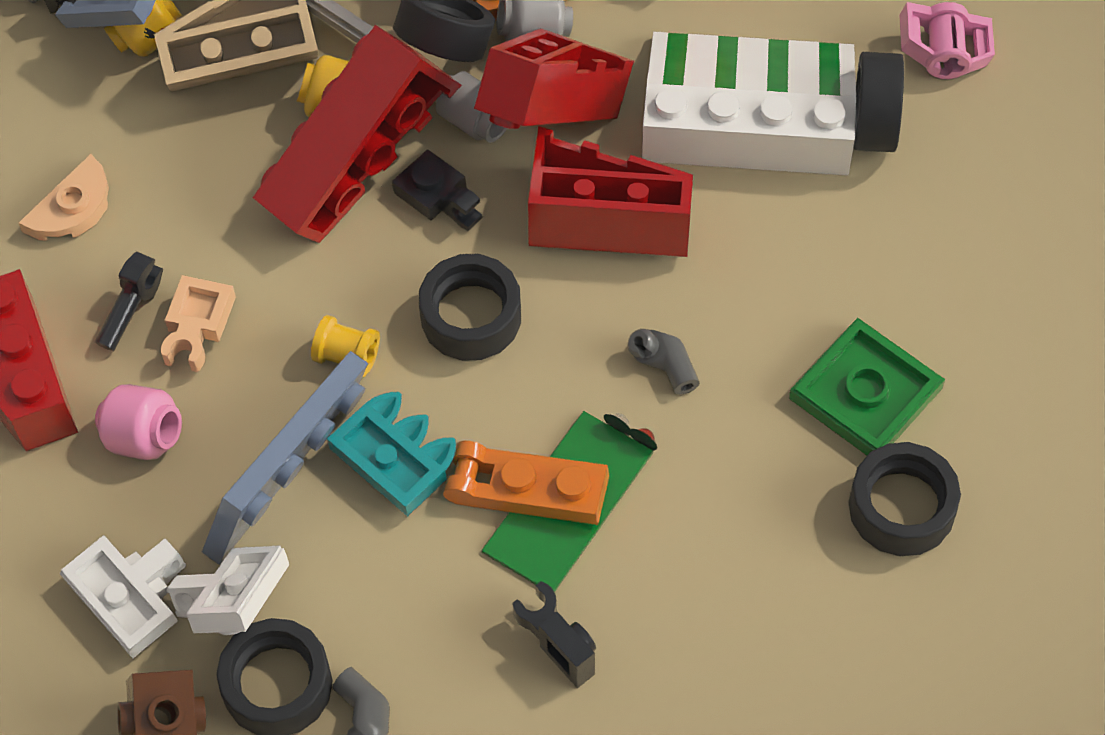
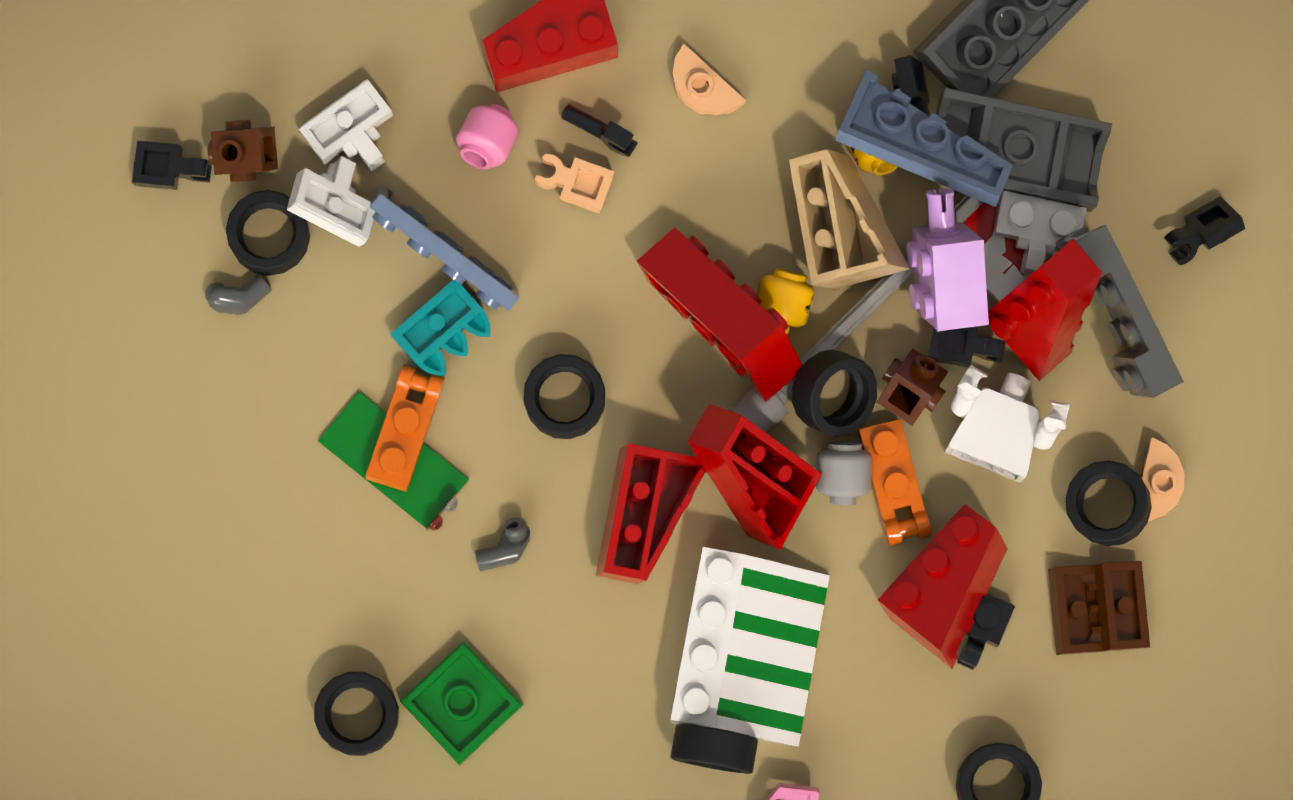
camera: 90 degrees right, 20 degrees up
(335, 341) = (539, 296): yellow bush -> none
(435, 187) = (686, 377): black plate -> none
(565, 644) = (266, 444): black plate -> none

